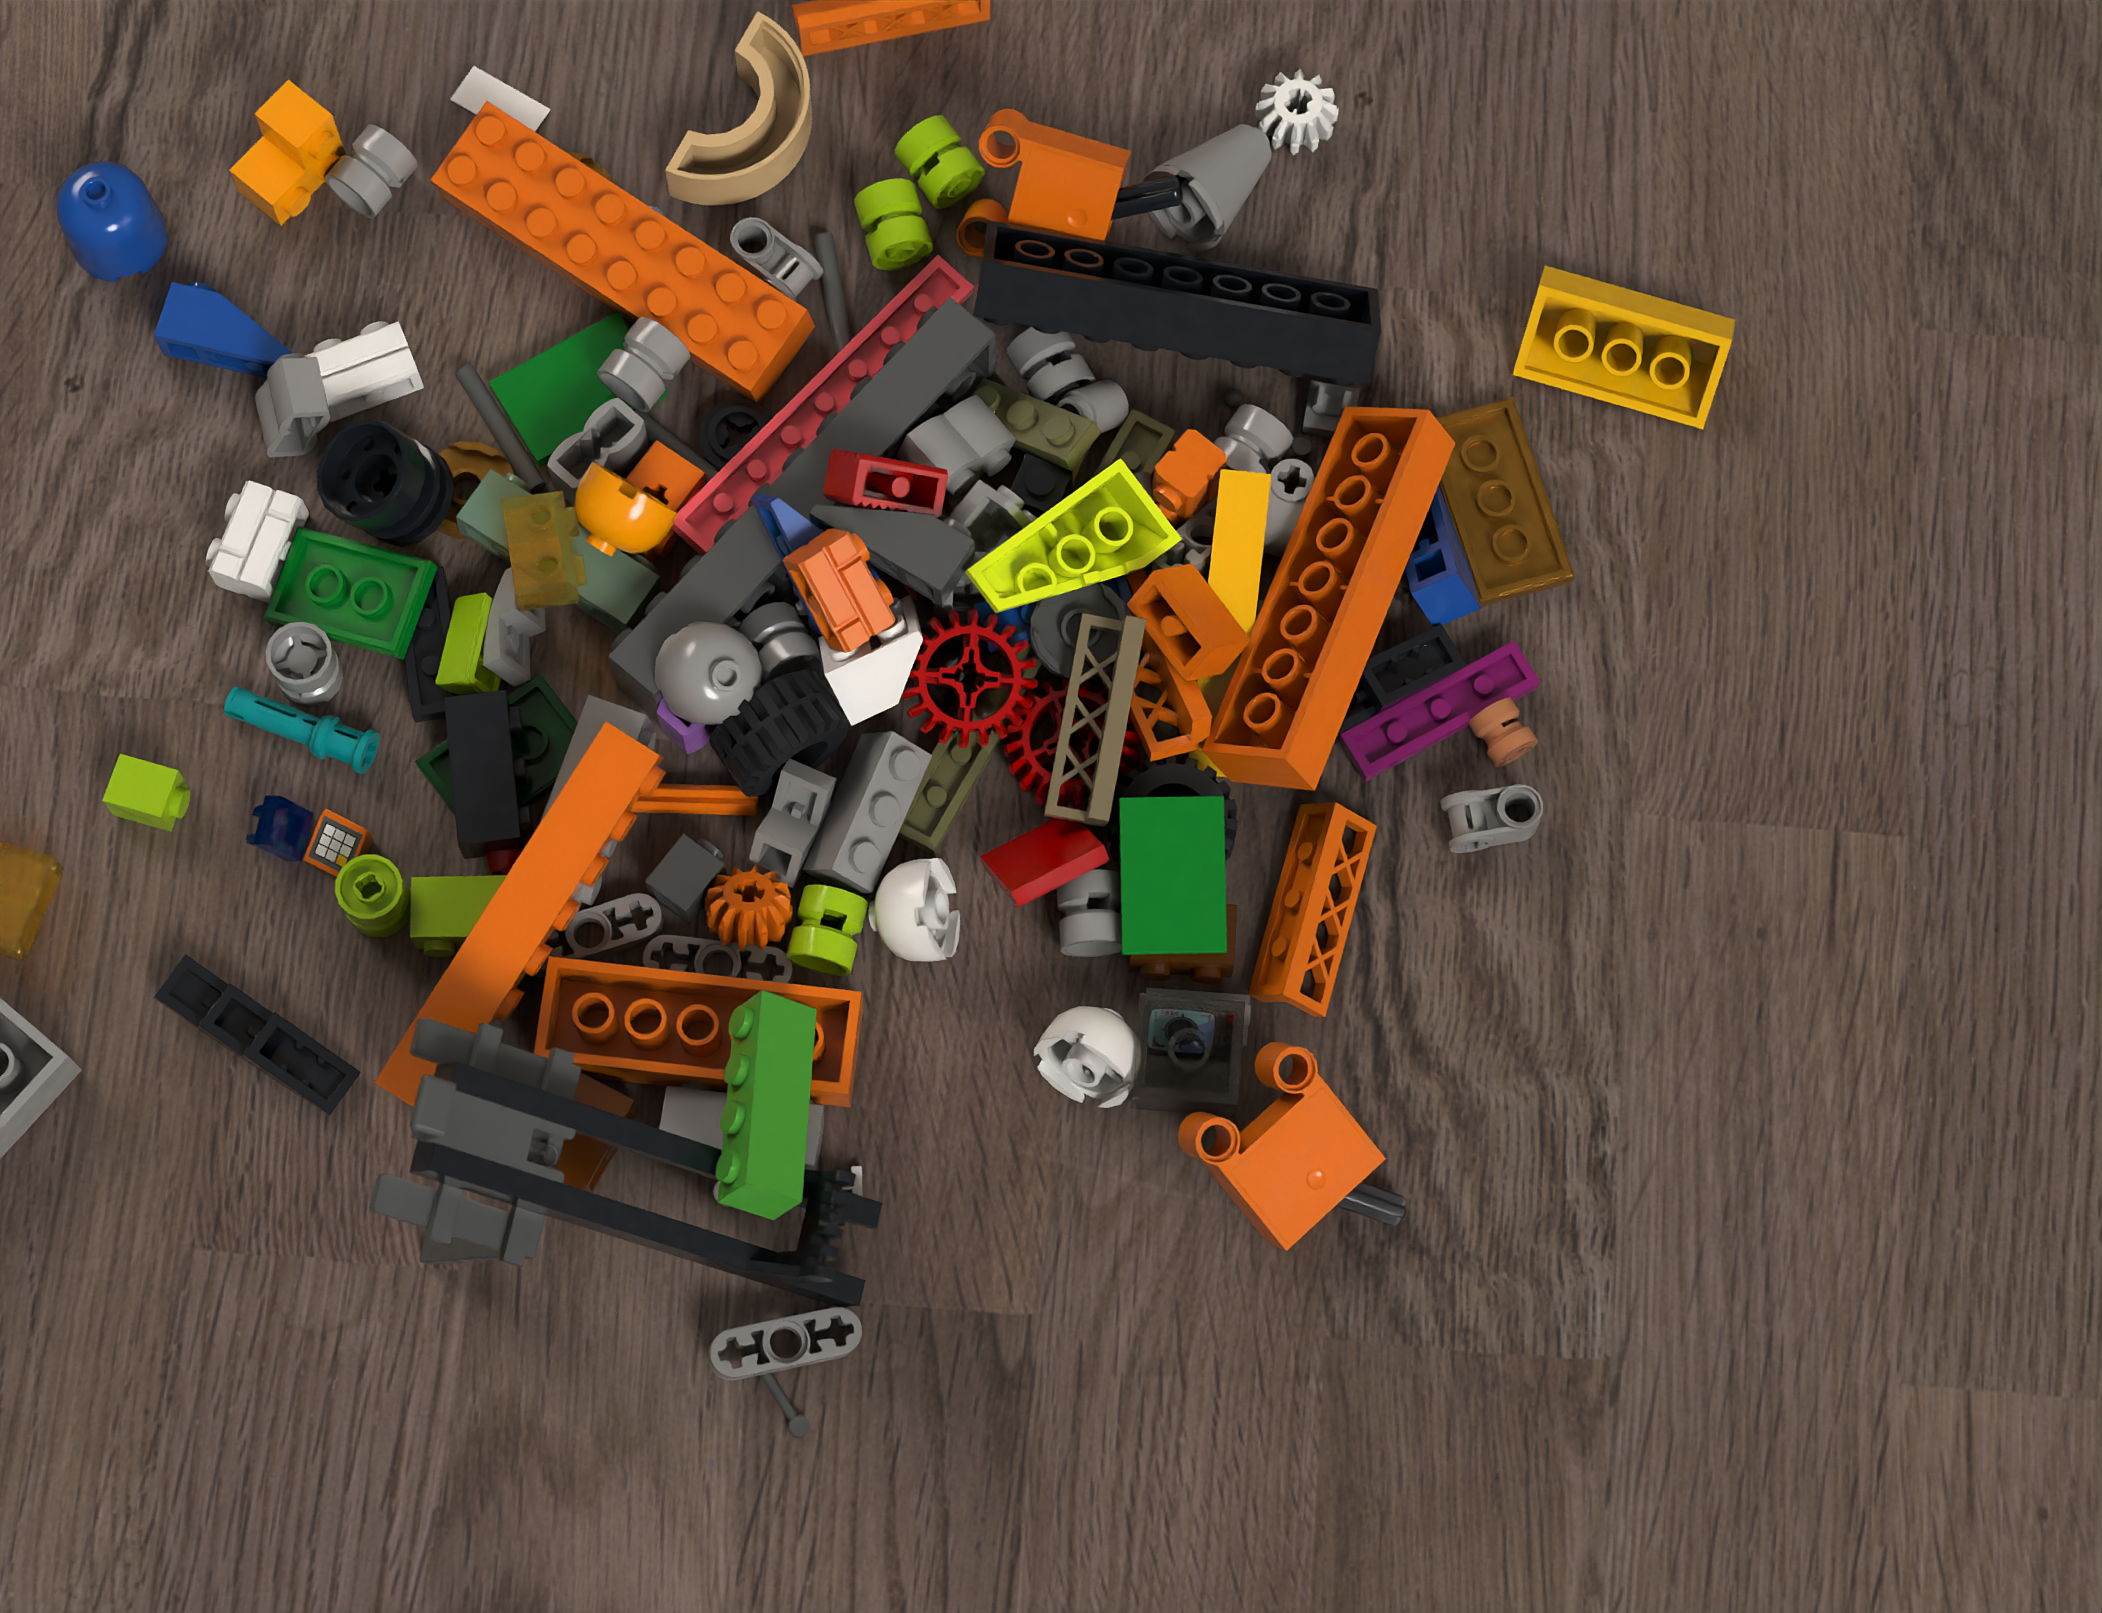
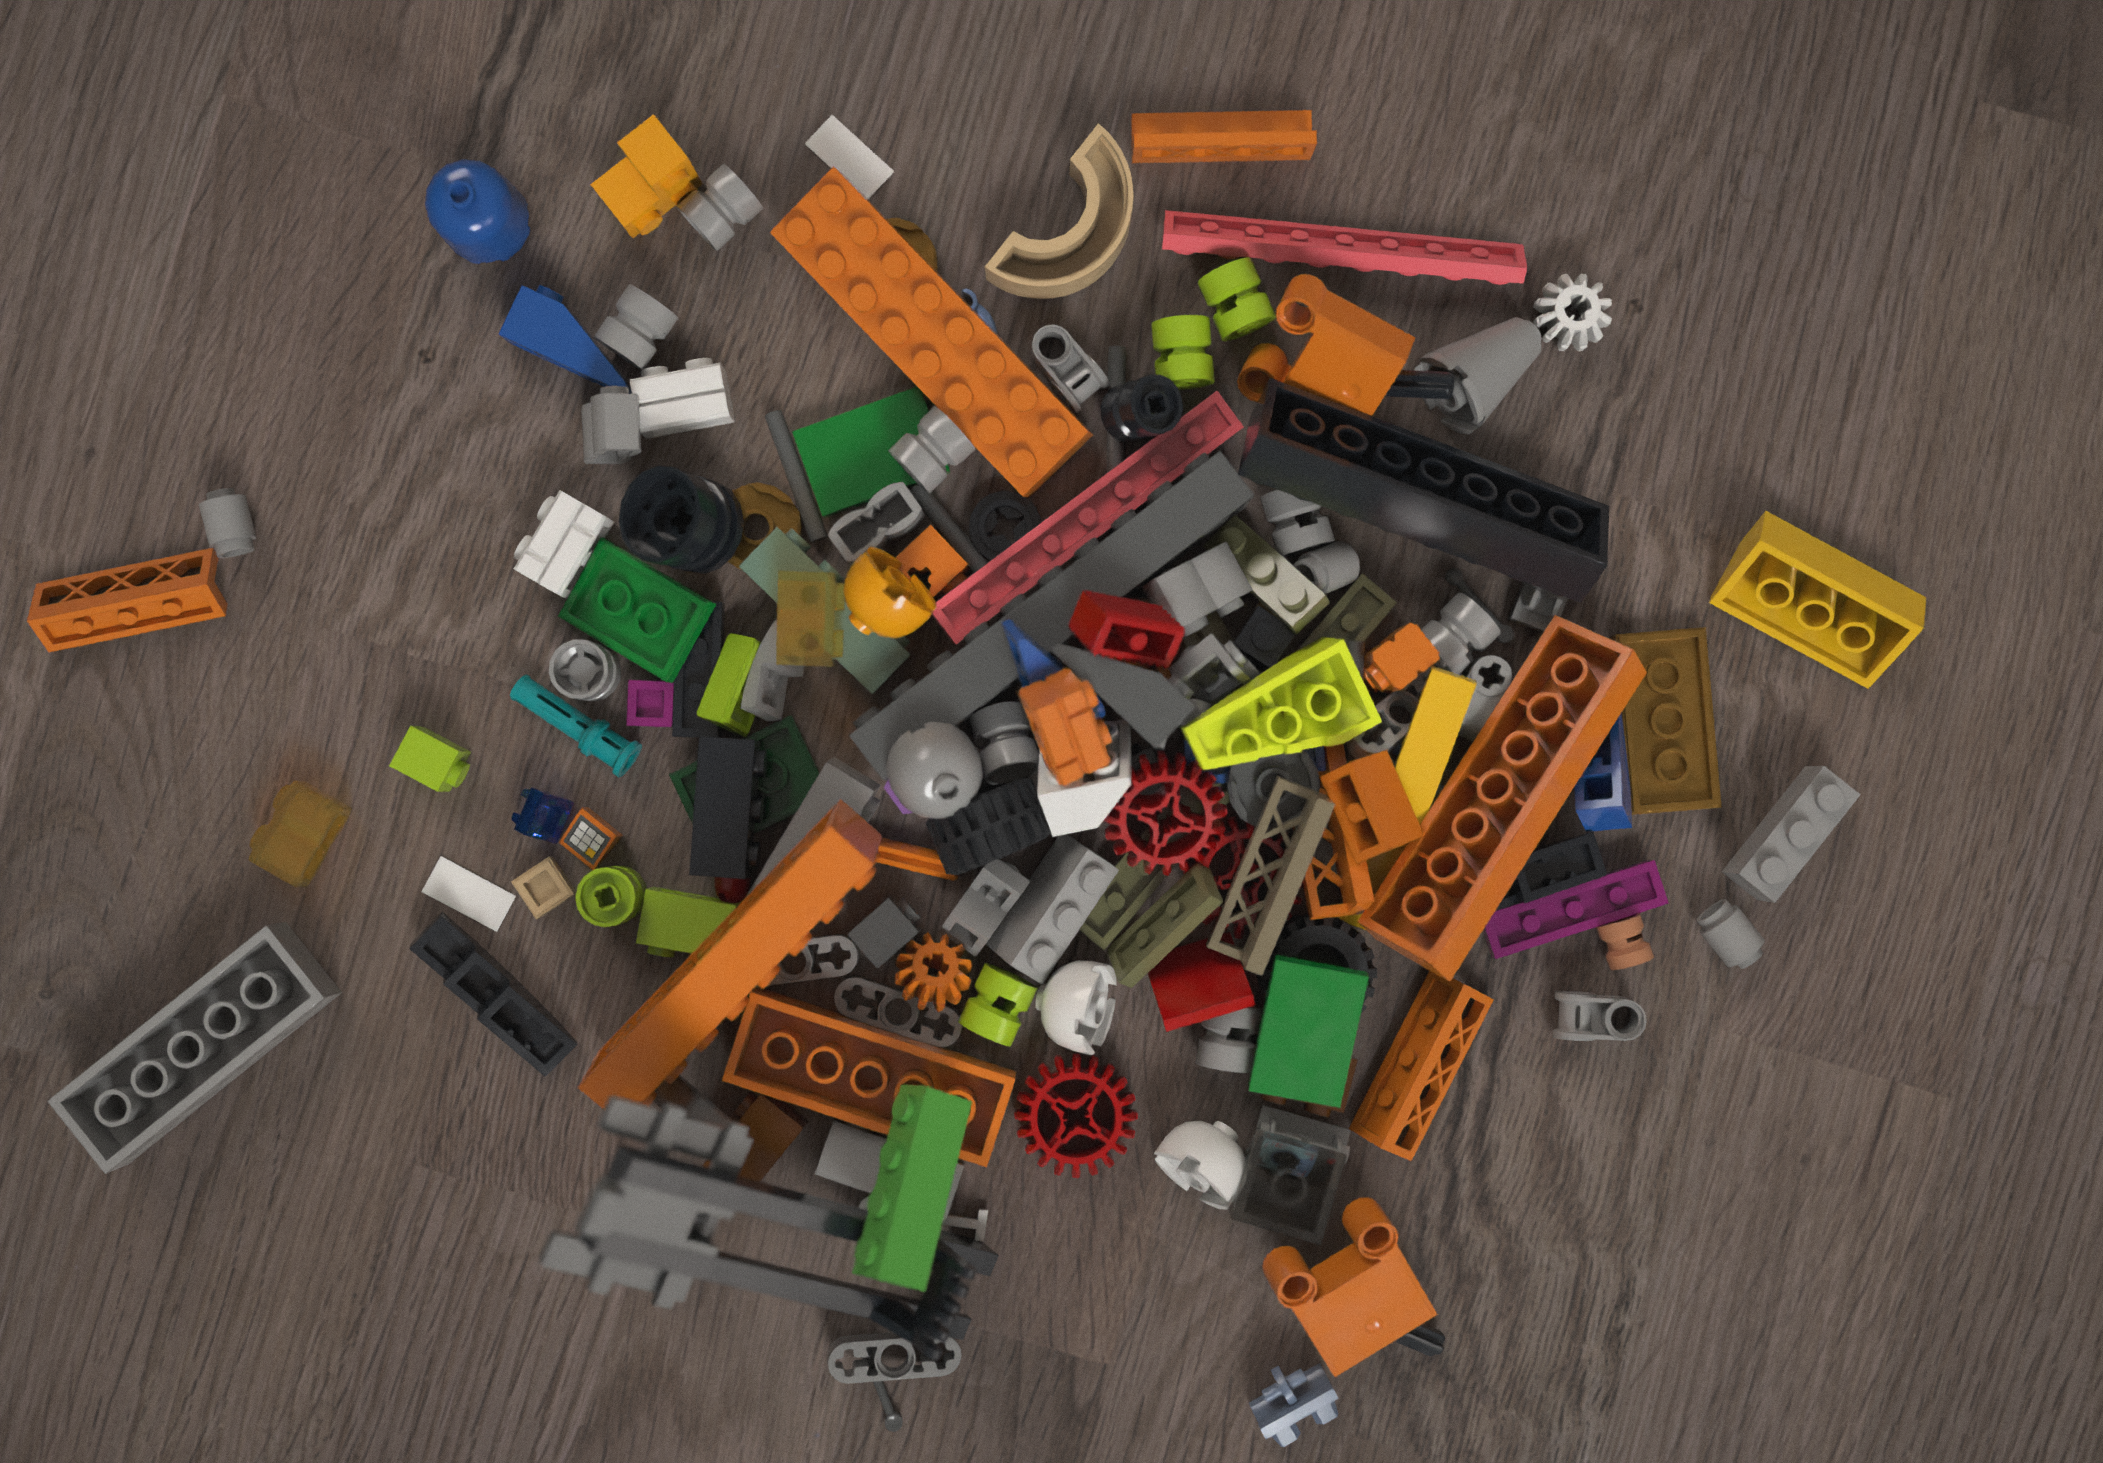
camera: 15 degrees right, 15 degrees up
(209, 937) = (468, 893): none -> white sticker
(294, 911) = (544, 887): none -> tan tile
(303, 300) = (636, 327): none -> light grey wheel
(382, 690) = (650, 703): none -> magenta plate
(860, 283) = (1141, 408): none -> black wheel
(954, 995) = (1053, 1147): none -> red gear
(993, 803) = (1164, 925): none -> olive plate
(1060, 92) = (1344, 247): none -> coral plate
(1268, 1289) = (1293, 1400): none -> sand blue hips
(1616, 703) = (1731, 934): none -> light grey brick
(1653, 585) = (1791, 833): none -> light grey brick

